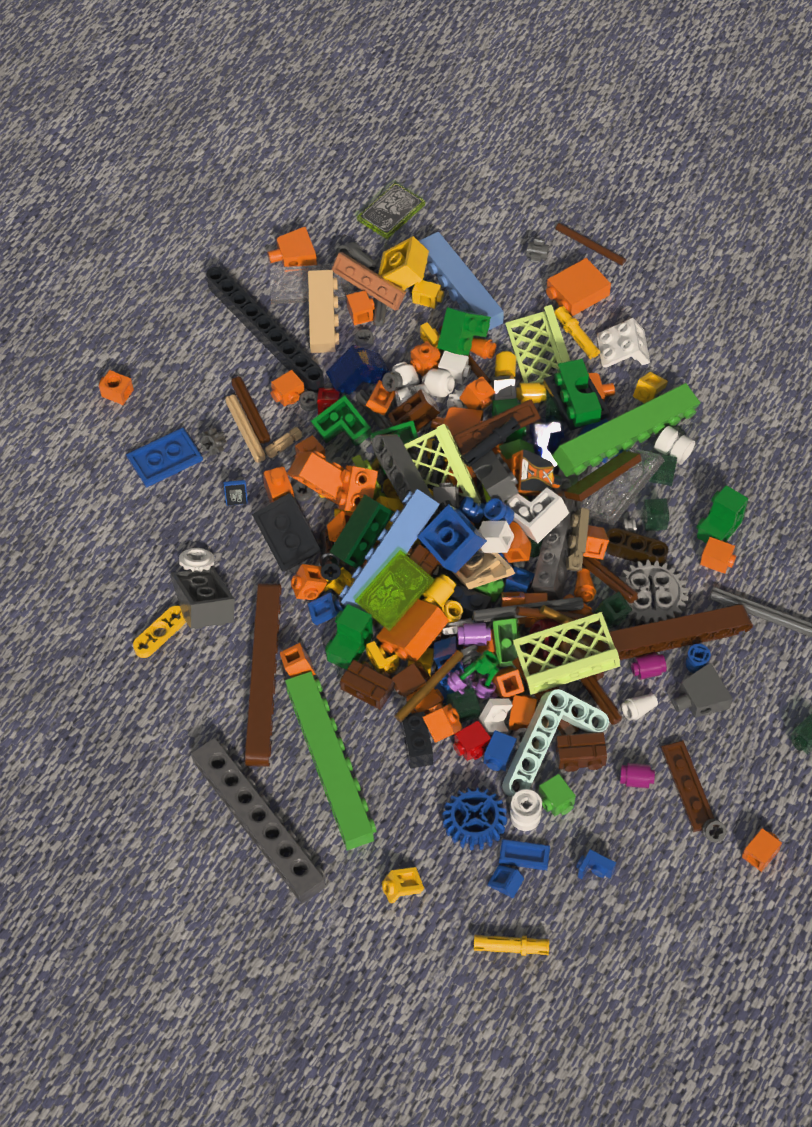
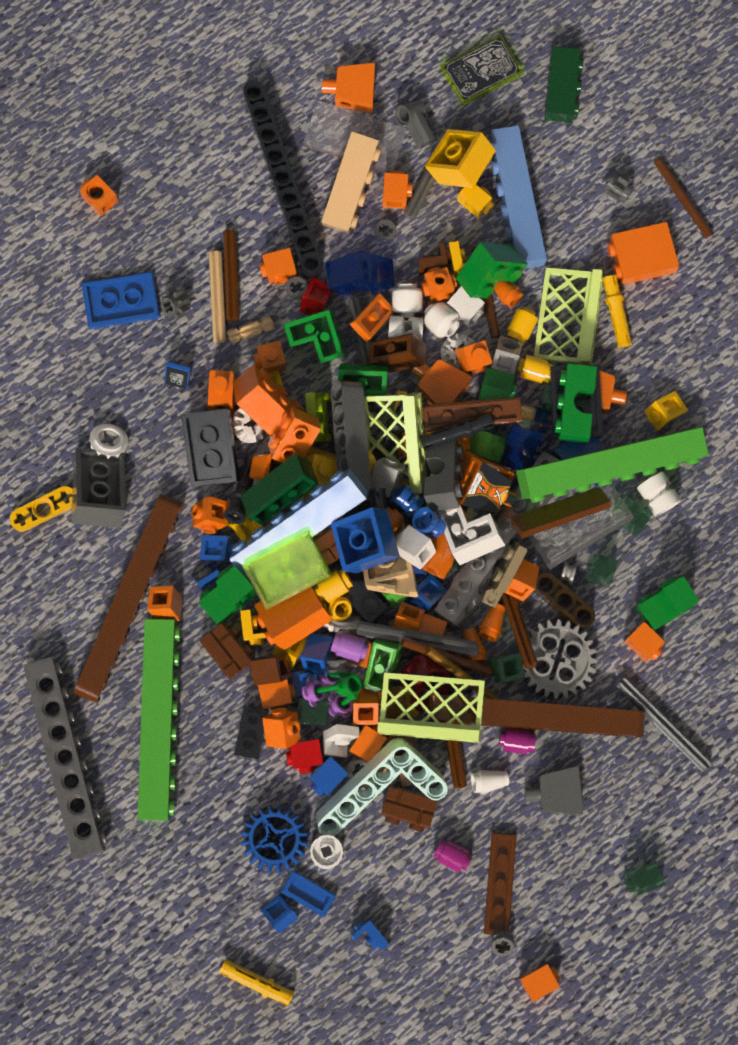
camera: 15 degrees right, 20 degrees up
(312, 514) = (243, 432): none -> white gear
(325, 634) = (206, 576): none -> slope
(368, 280) = (415, 163): nougat tile -> none
(392, 381) = (390, 303): dark grey bush -> none
(402, 883) = (177, 879): yellow bracket -> none
(406, 347) = (431, 261): none -> reddish brown bracket
(428, 686) = (282, 687): pearl gold bar -> none
(460, 198) = (563, 84): none -> dark green brick
(556, 796) = (363, 848): bright green brick -> none
(623, 342) = (661, 345): white bracket -> none
(696, 663) = (568, 755): blue wheel -> none

